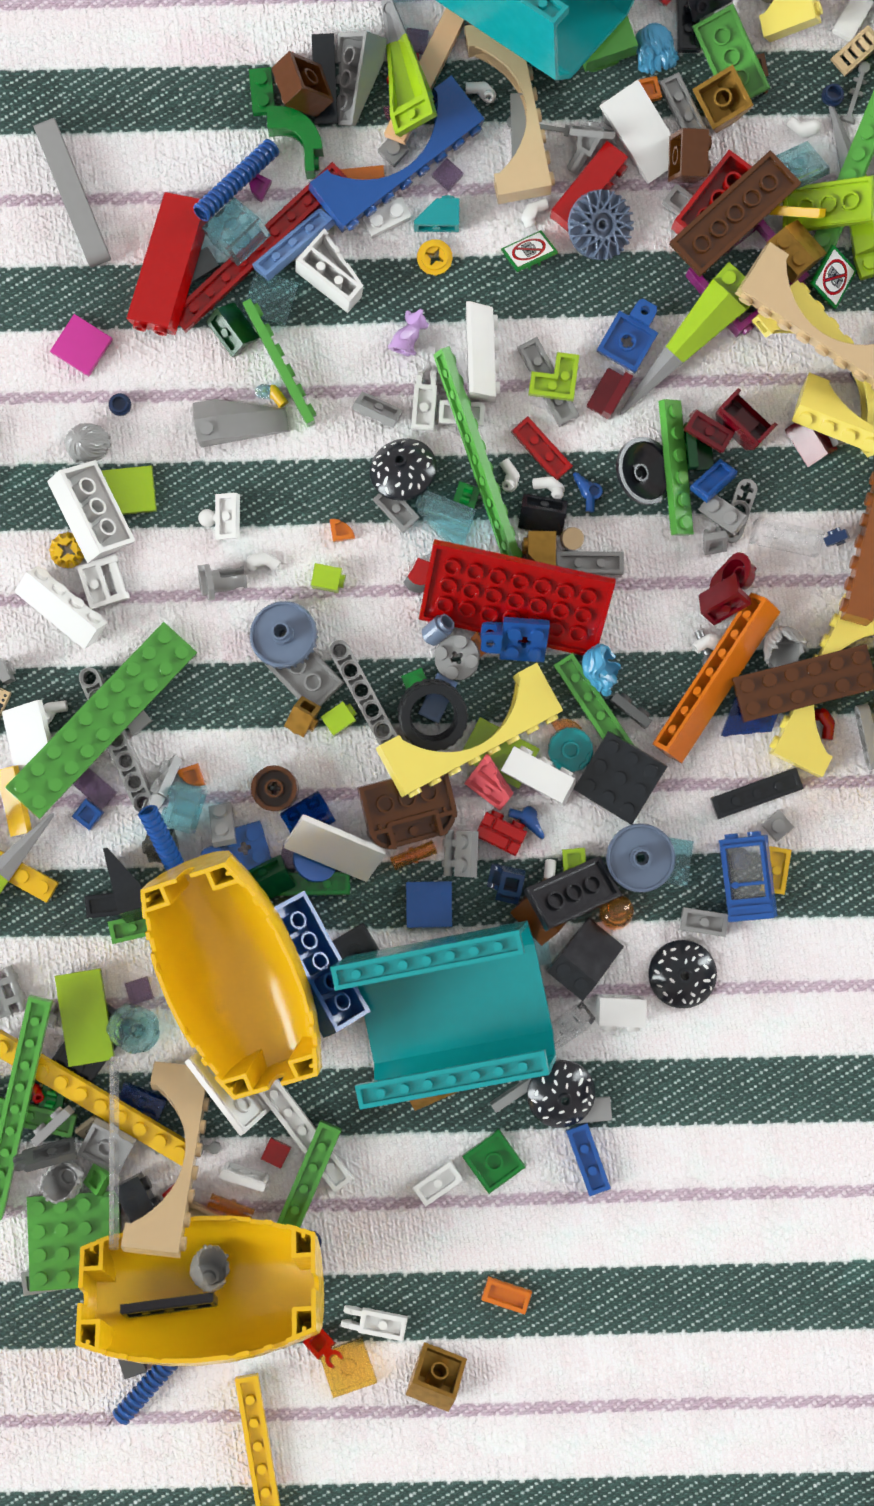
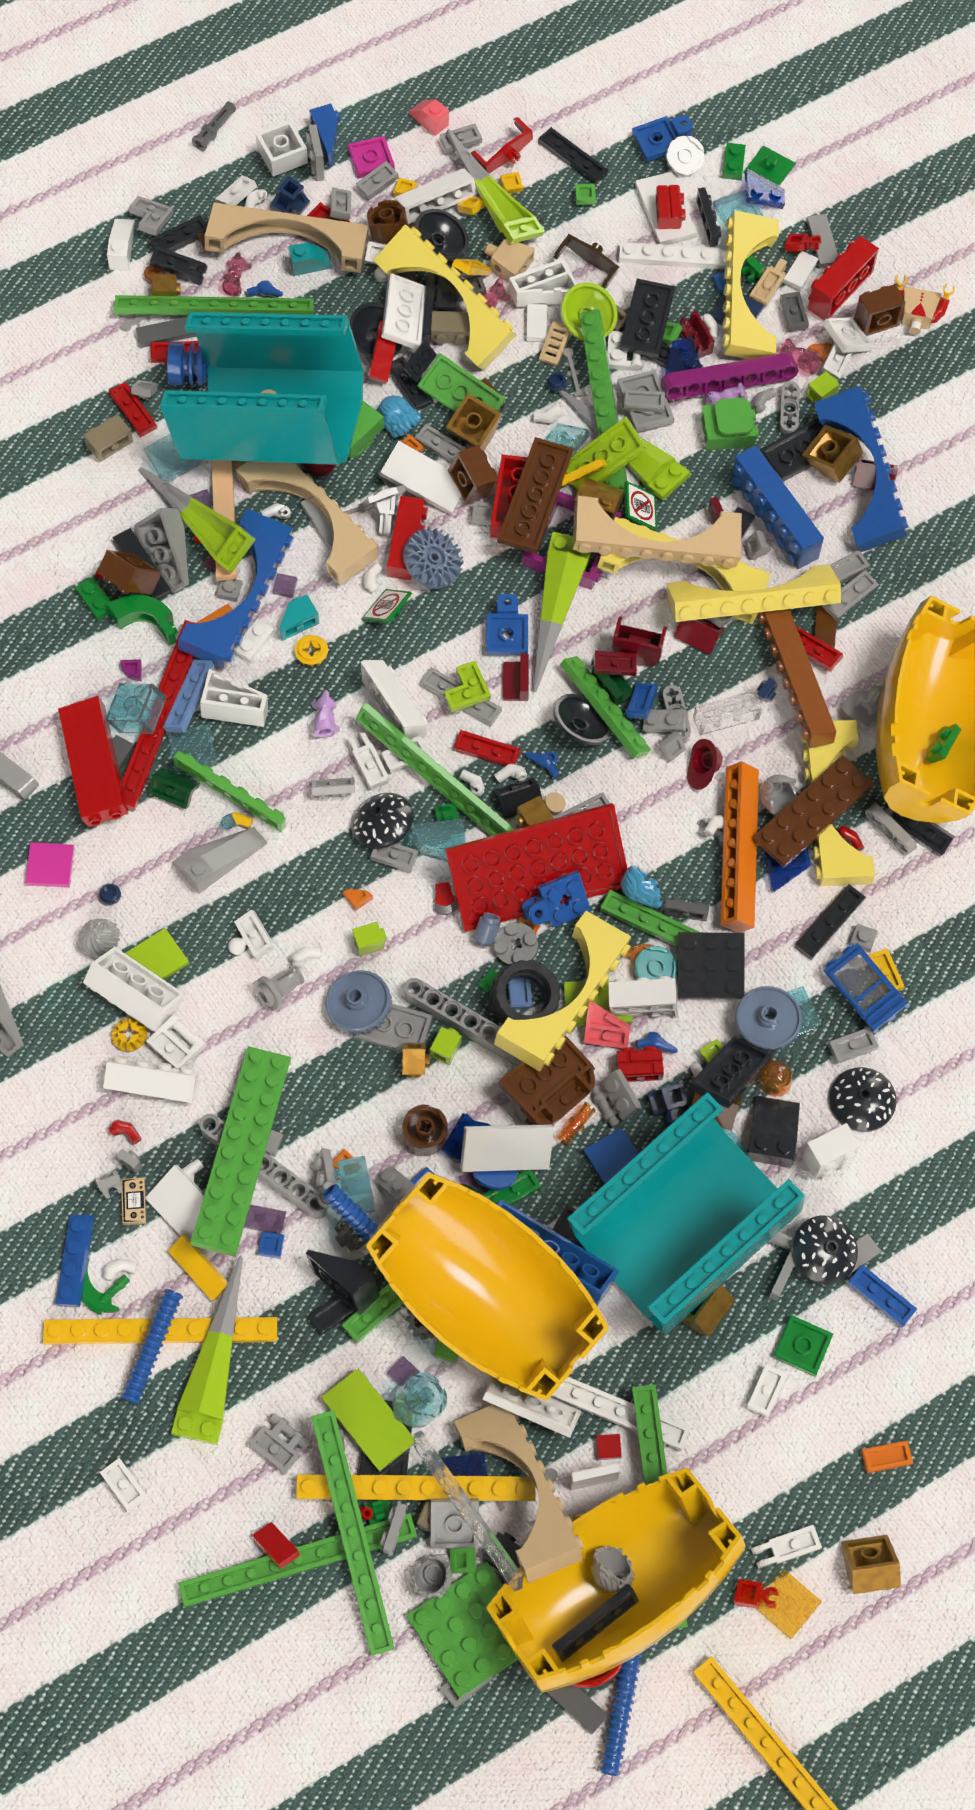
camera: 35 degrees left, 20 degrees down
(17, 637) = (125, 1128): none -> red arm
(46, 1155) = (404, 1559): dark grey hinge -> none
(236, 180) = (114, 669): blue piece -> none
(723, 600) = (707, 784): dark red panel -> none

